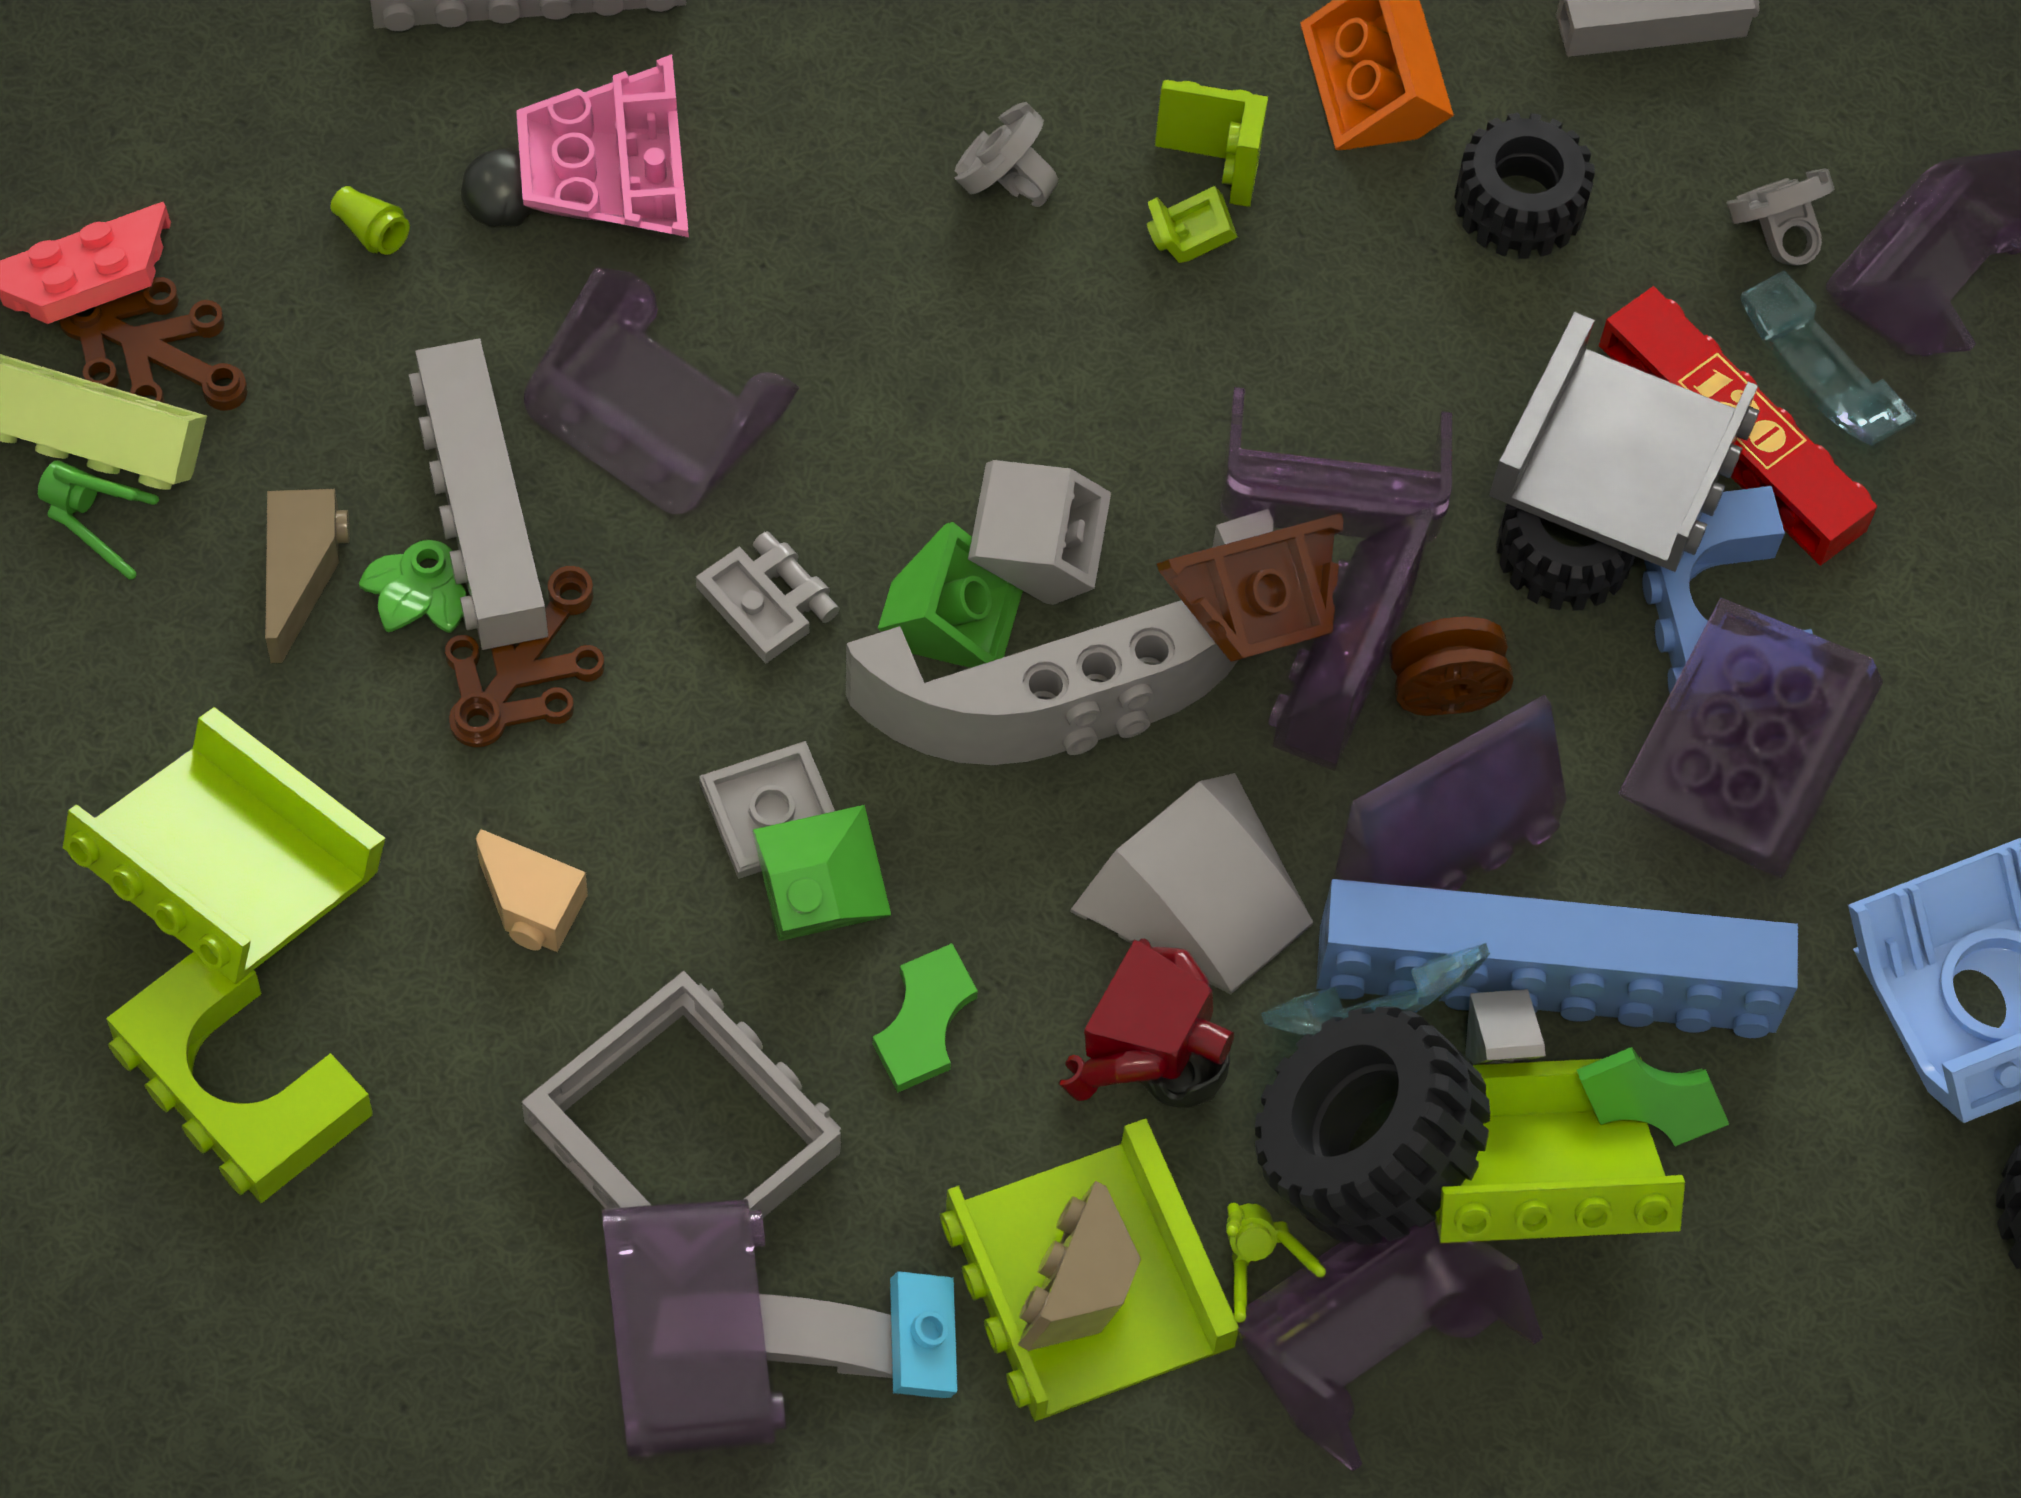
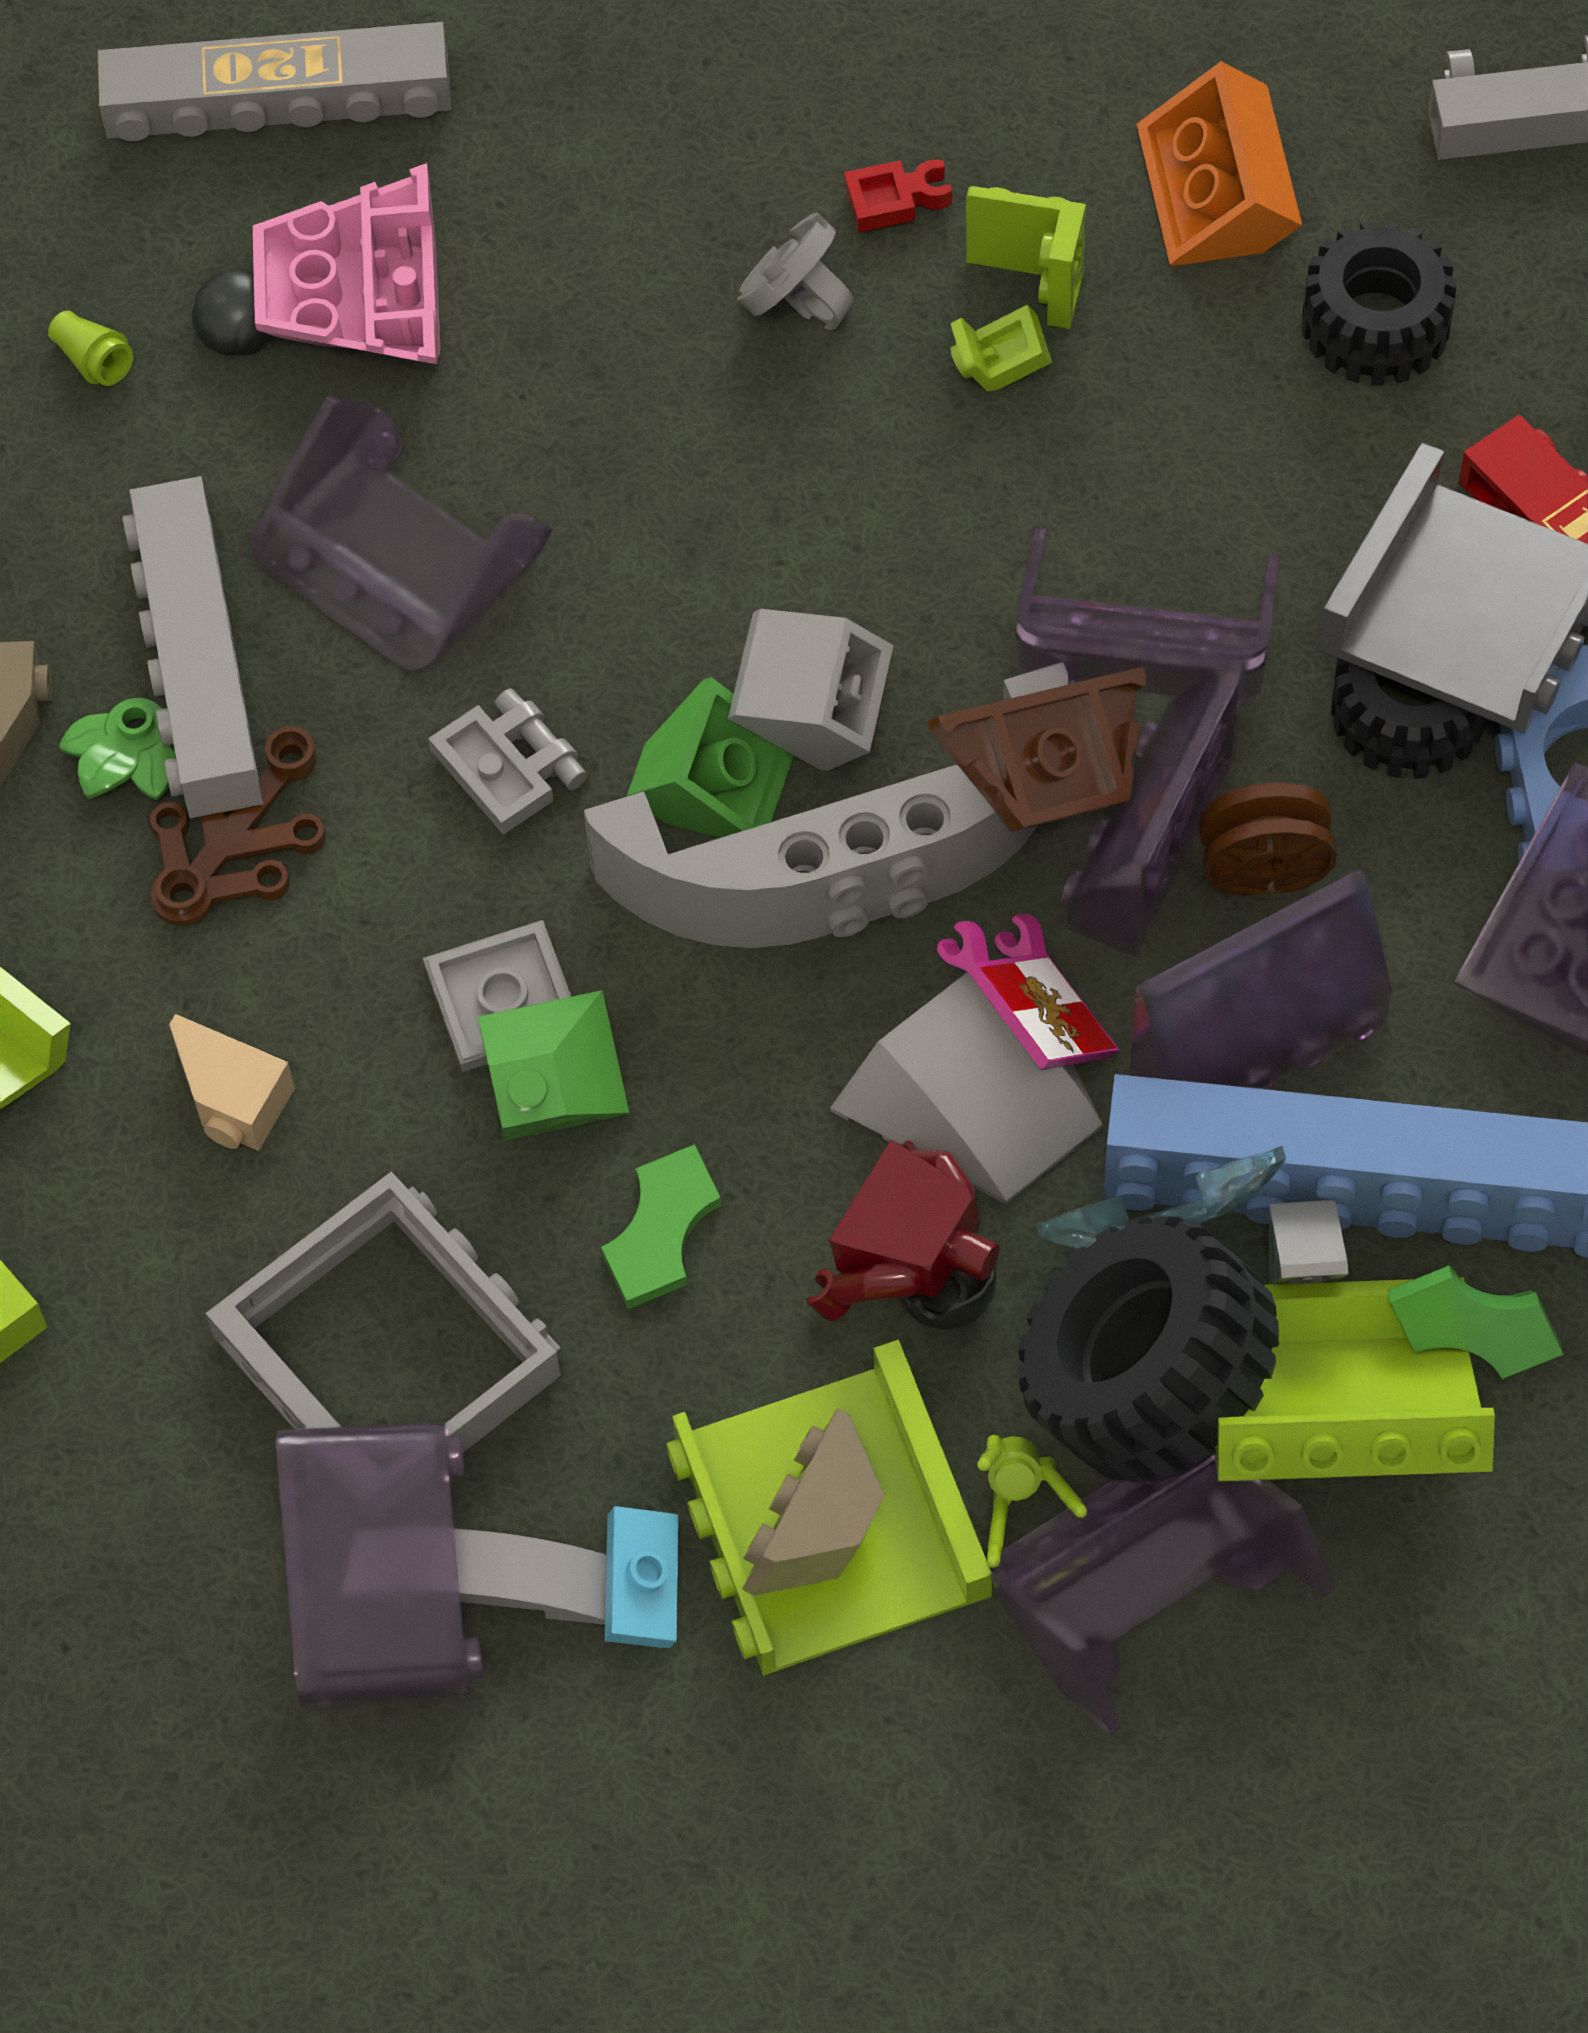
camera: 10 degrees right, 0 degrees up
(1085, 87) = (888, 196): none -> red plate
(1247, 805) = (1031, 994): none -> flag

